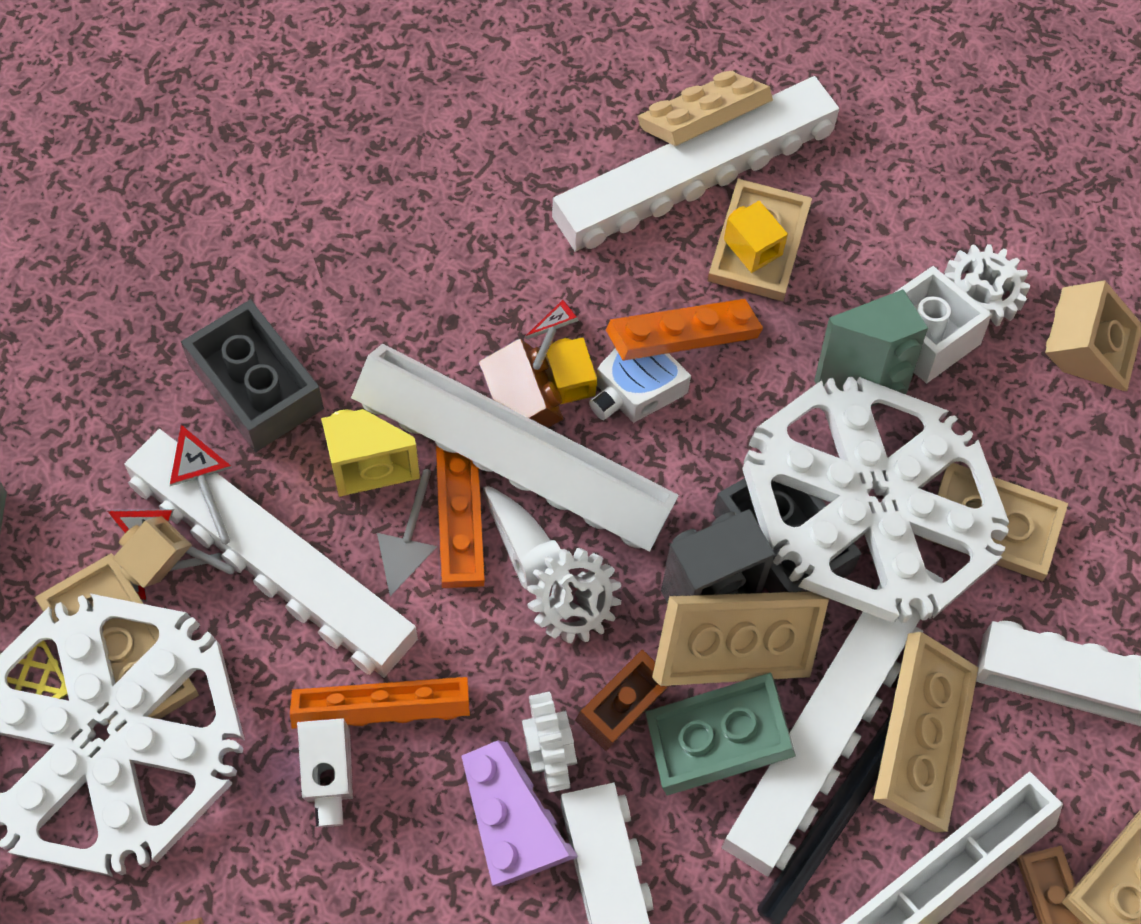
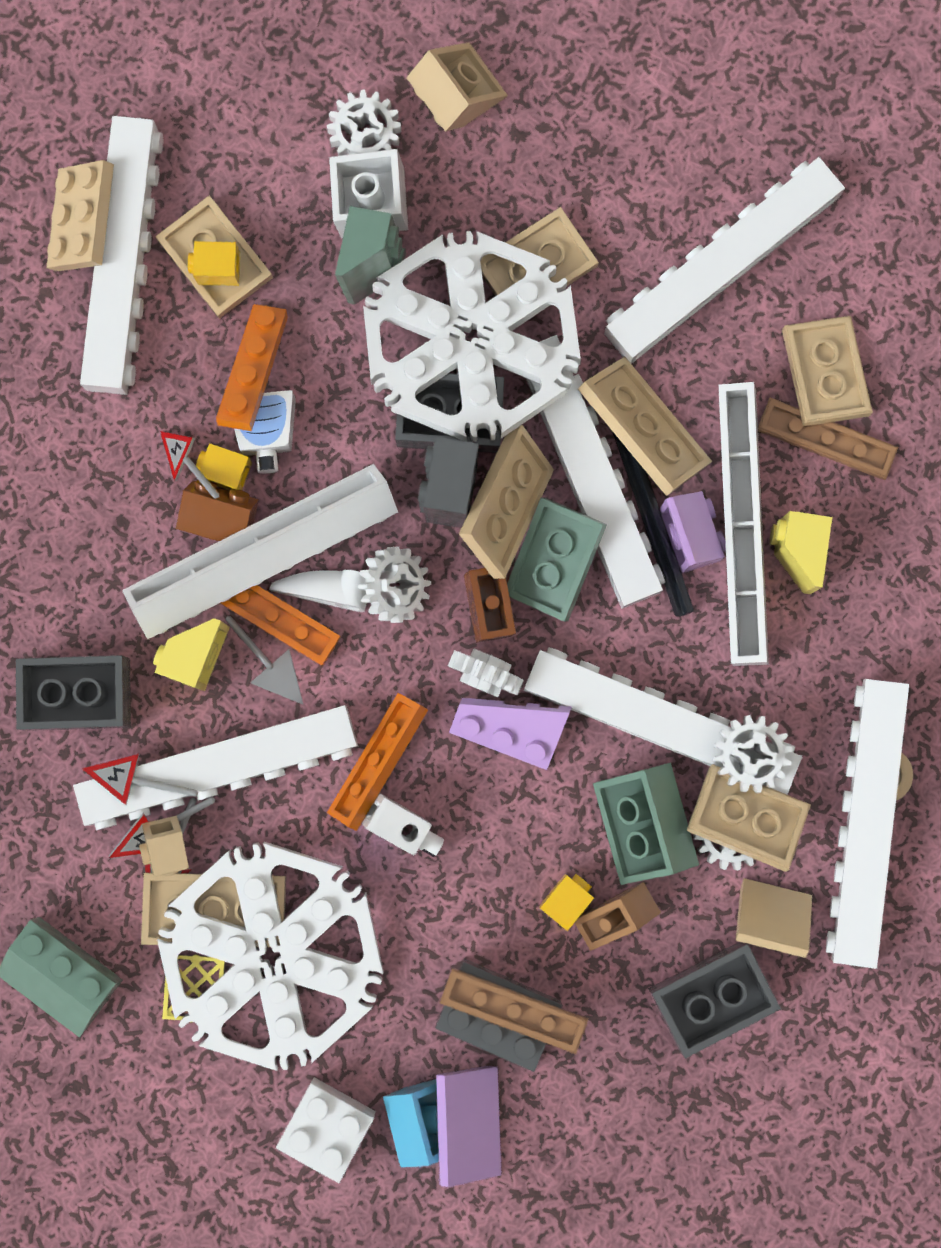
camera: 50 degrees left, 20 degrees up
(860, 858) = (692, 531): none -> lavender slope

